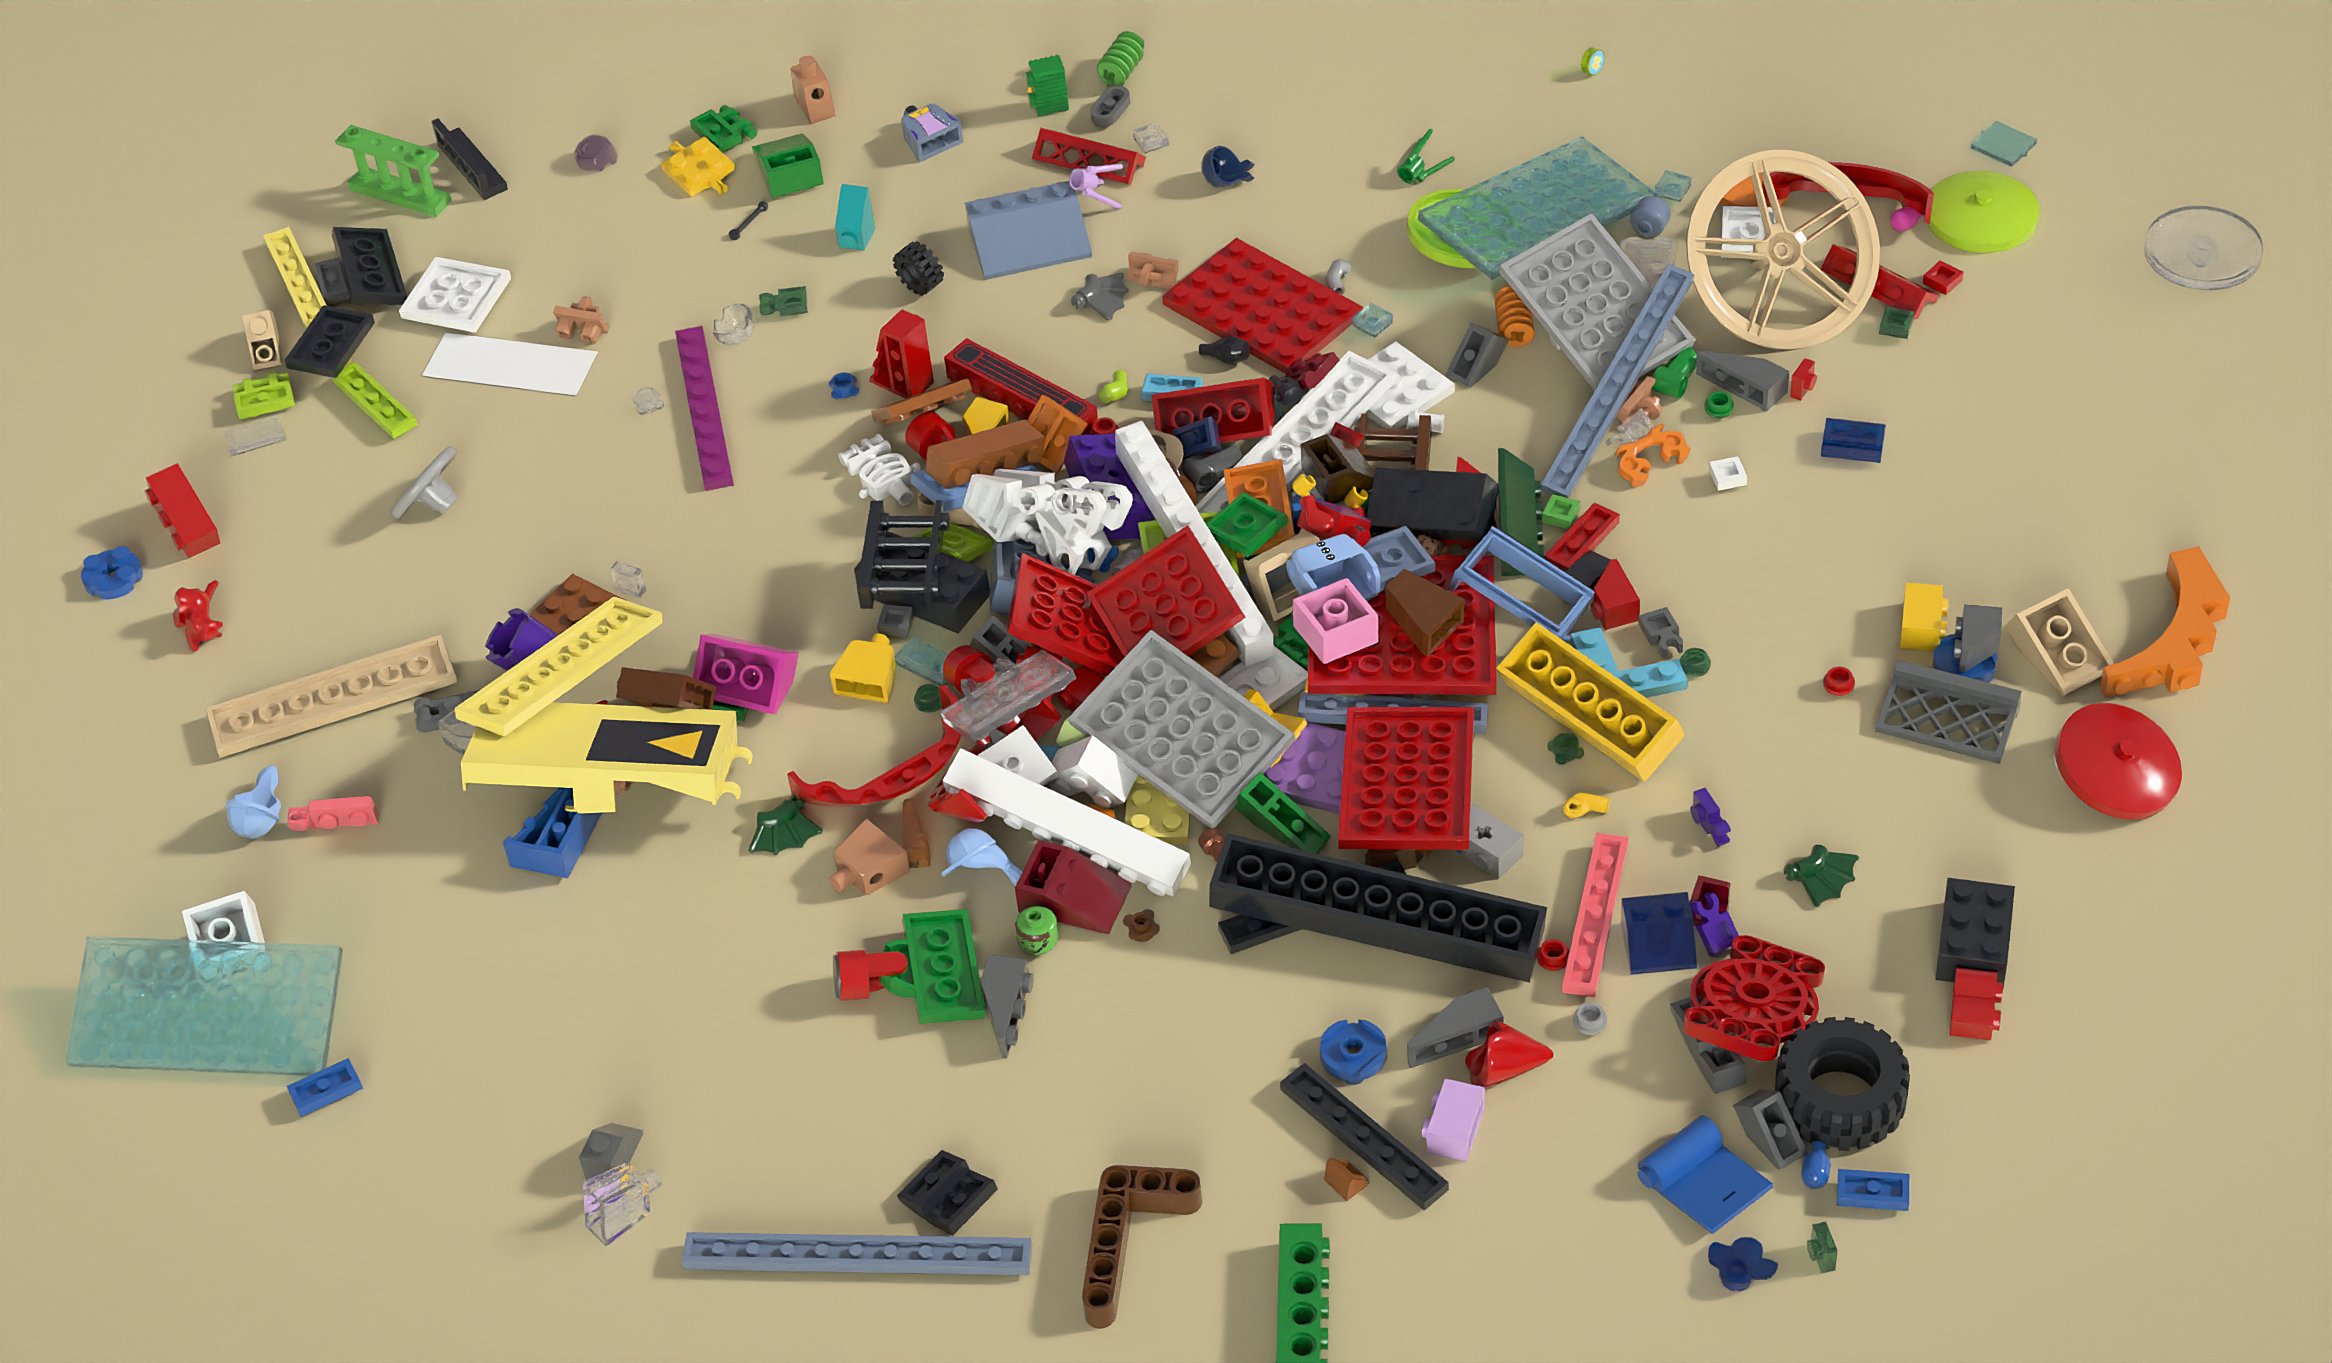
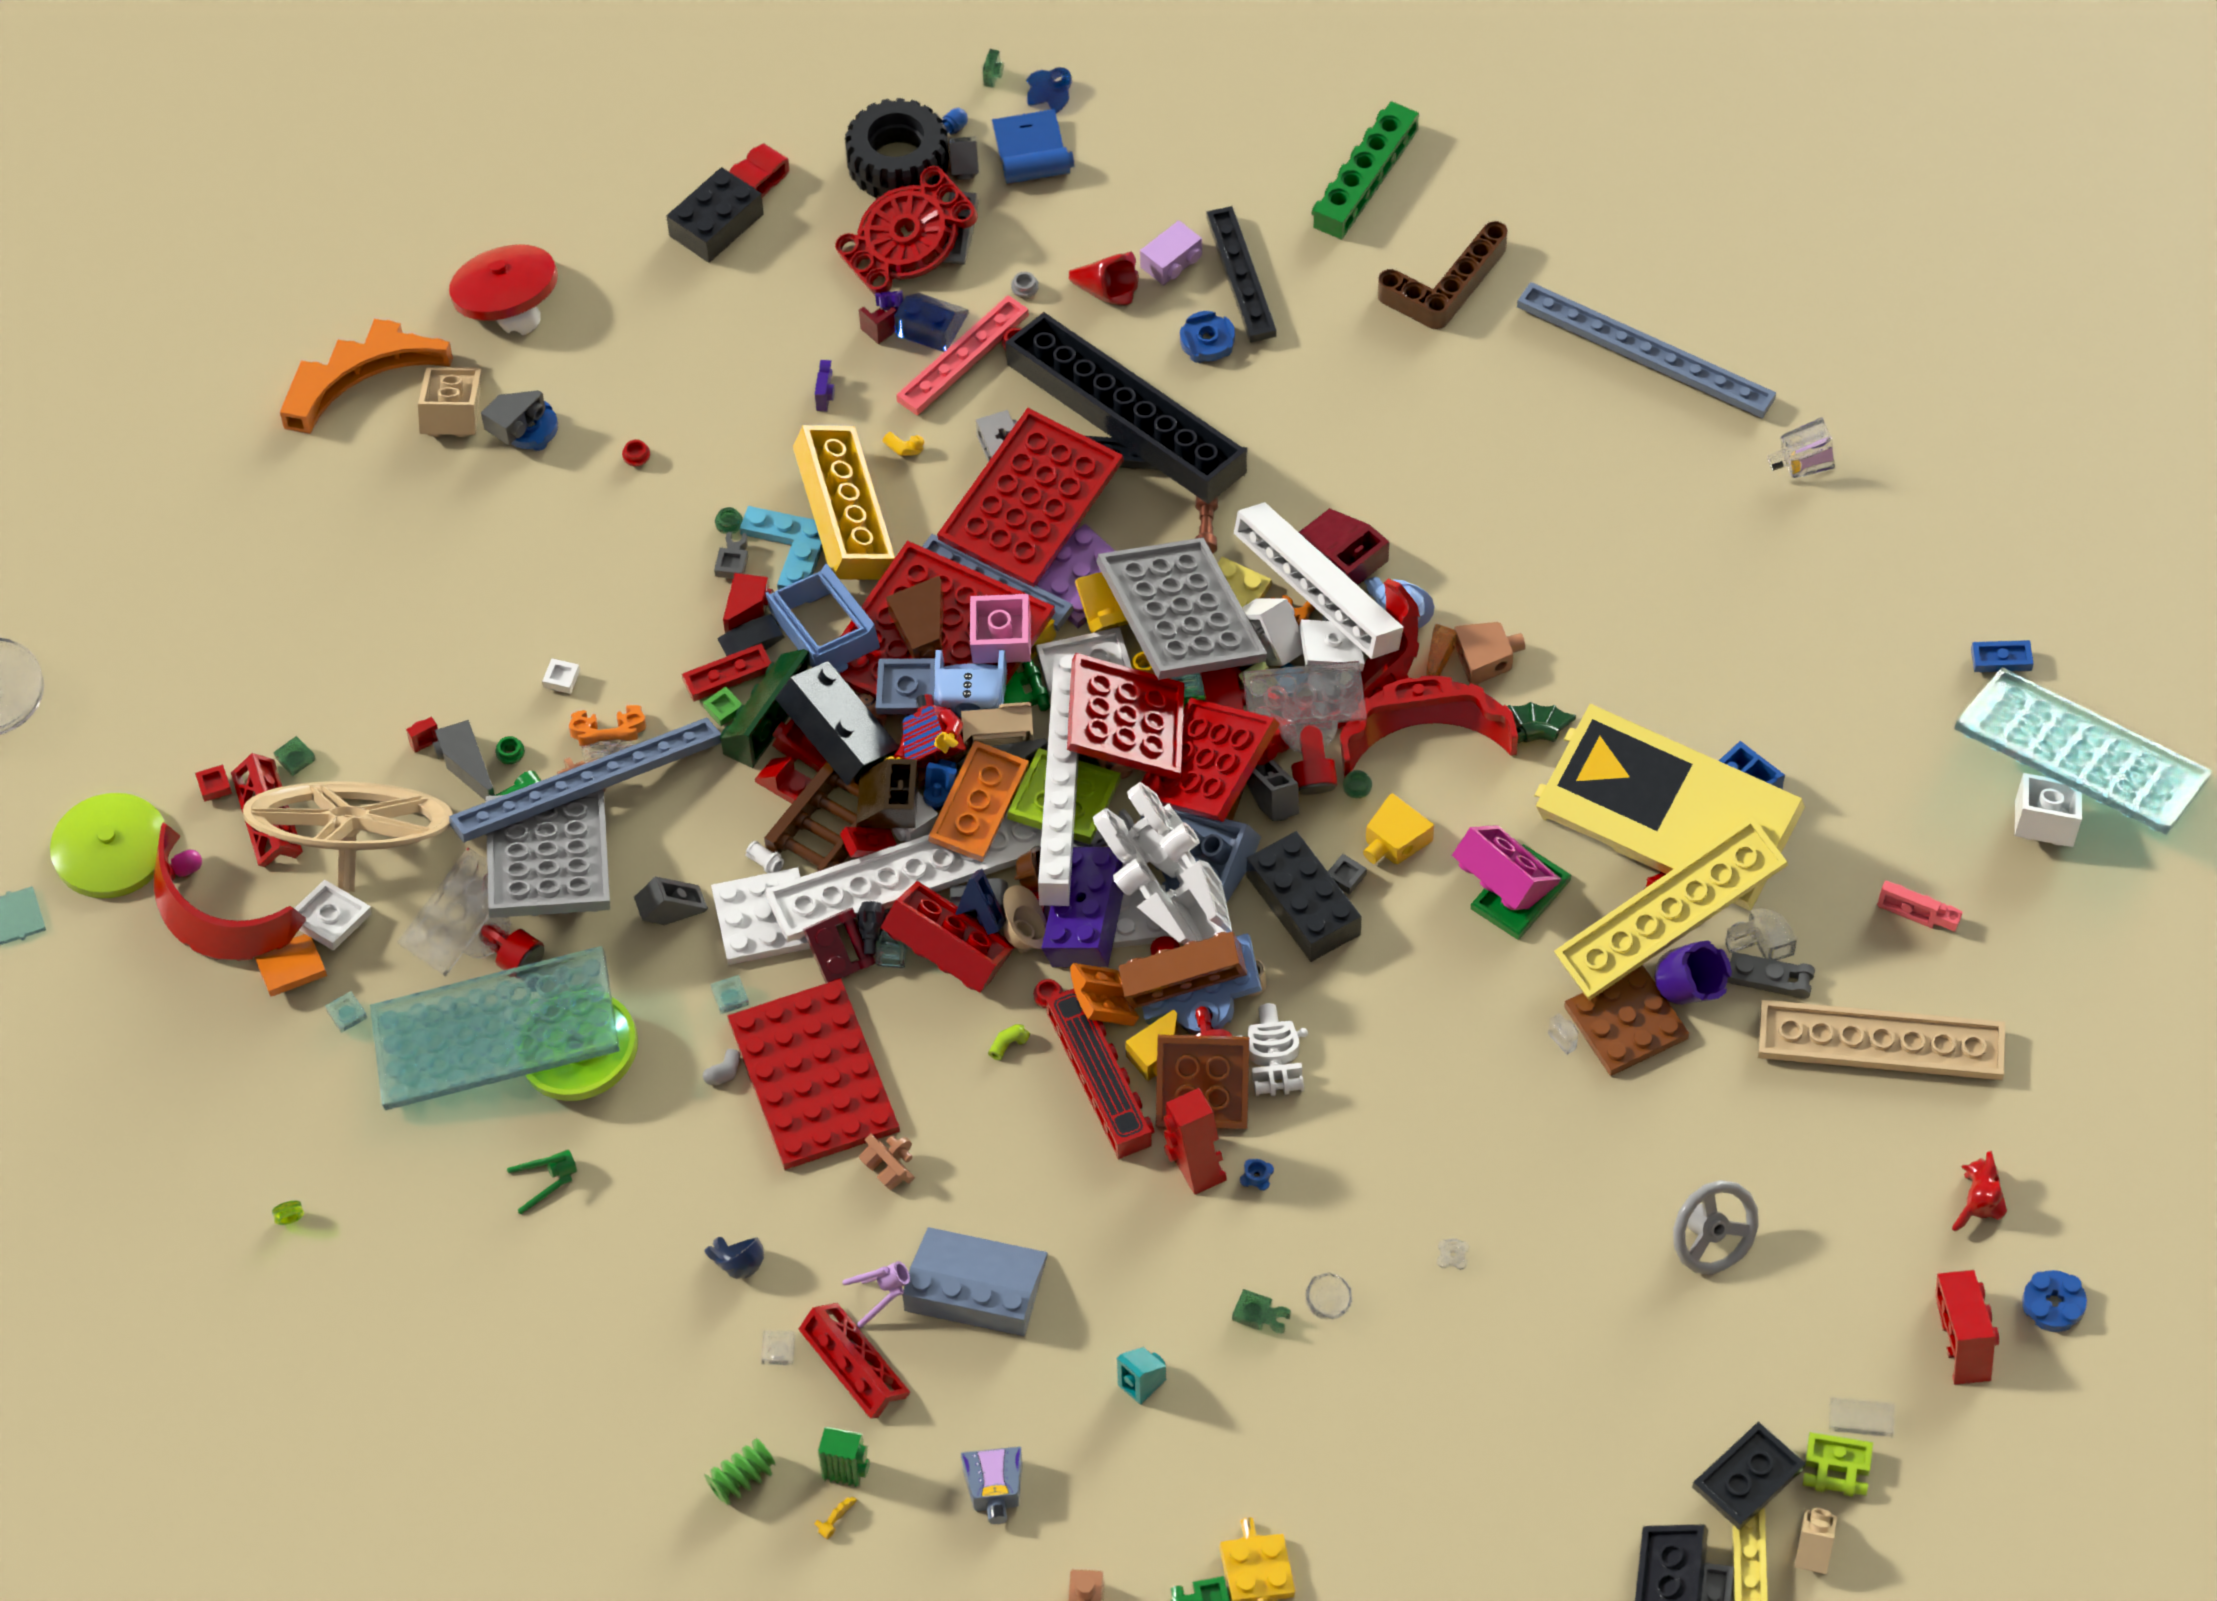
camera: 155 degrees left, 10 degrees up
(255, 811) = (1986, 937): light blue piece -> none
(375, 400) = (1723, 1387): lime plate -> none
(455, 294) = (1590, 1505): white plate -> none
(510, 363) = (1568, 1389): white sticker -> none
(580, 316) = (1475, 1392): nougat hips -> none
(608, 1148) = (1794, 501): dark grey slope -> none
(664, 690) = (1569, 875): reddish brown window -> none
(704, 408) = (1400, 1223): magenta plate -> none
(734, 234) = (1263, 1452): black hinge -> none
(789, 164) = (1163, 1512): green slope -> none
(877, 542) = (1332, 905): black fence -> none
(918, 268) = (1113, 1266): black tyre -> none
(922, 661) = (1340, 817): clear light blue plate -> none
(931, 965) = (1485, 532): green plate -> none
(947, 1192) = (1557, 368): black slope -> none
(961, 542) = (1262, 920): lime plate -> none
(1004, 991) = (1436, 492): dark grey slope -> none
(1037, 930) = (1387, 520): bright green head -> none
(1102, 294) = (950, 1165): dark grey arm -> none
(1110, 106) = (787, 1417): dark grey plate -> none
(1142, 932) = (1301, 509): reddish brown plate -> none
(1166, 383) = (959, 1008): medium azure plate -> none
(1228, 350) = (882, 1027): black piece -> none
(1246, 524) = (1008, 766): green plate -> none
(1279, 816) = (1139, 526): green slope -> none
(1344, 1178) = (1270, 255): dark orange slope -> none
(1455, 1028) = (1121, 315): dark grey slope -> none
(1513, 318) = (608, 924): orange piece -> none
(1565, 748) = (888, 491): clear green plate -> none
(1650, 216) = (398, 979): sand blue head -> none
(1822, 873) = (777, 315): dark green arm -> none
(1853, 440) = (435, 658): clear blue plate -> none
(1873, 1189) = (929, 90): blue plate -> none
(1922, 616) = (529, 470): yellow brick -> none
(1955, 692) = (562, 398): dark grey fence -> none

